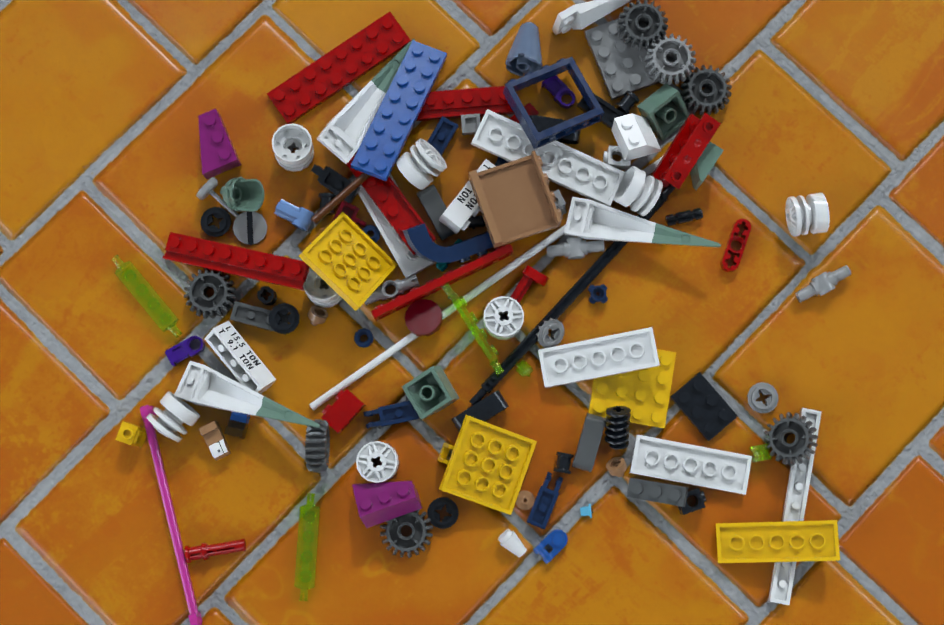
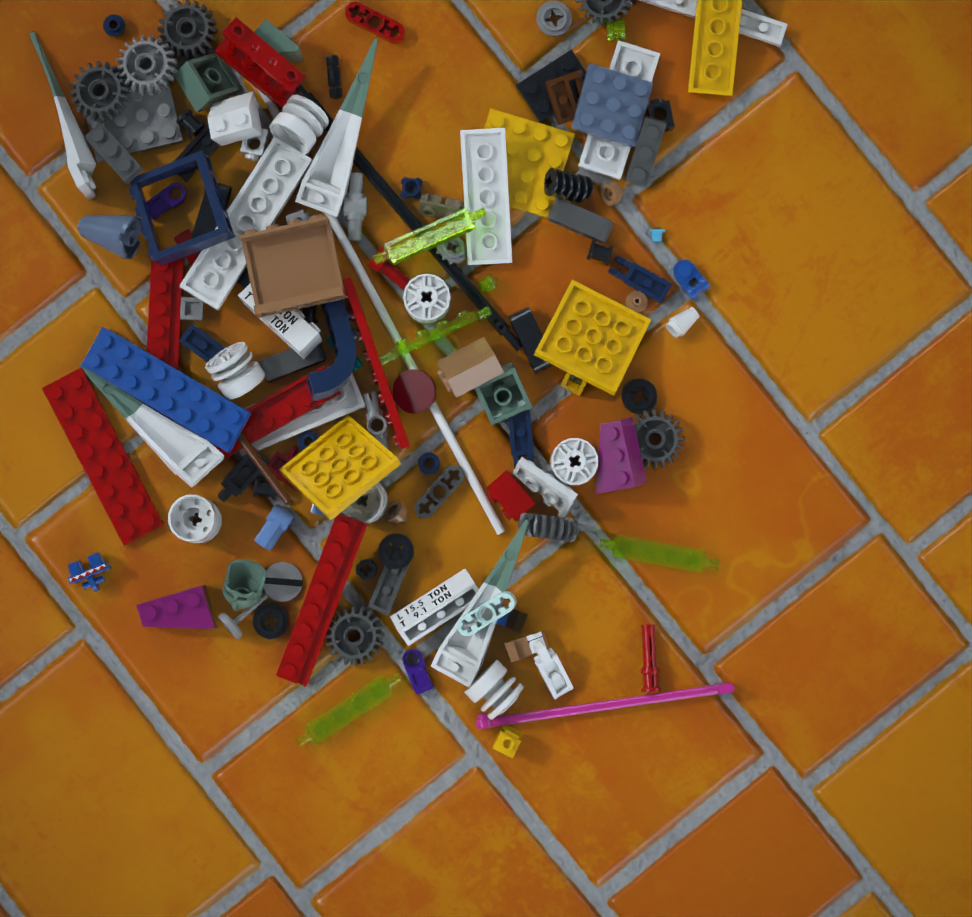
camera: 85 degrees left, 5 degrees up
(195, 464) = (551, 670): none -> white hinge
(240, 59) = (78, 573): none -> blue hips
(243, 405) = (503, 611): none -> light aqua beam
(331, 337) = (454, 483): none -> dark grey beam
(350, 445) = (552, 491): none -> white wing
(448, 360) = (469, 367): none -> medium nougat brick
(557, 313) = (429, 236): none -> clear neon green plate
(584, 312) = (431, 206): none -> dark tan hinge
(592, 42) = (114, 153): none -> dark grey plate
(693, 413) = (562, 97): none -> reddish brown plate
(693, 457) = (612, 105): none -> sand blue plate
(696, 34) = (119, 30): none -> dark blue plate

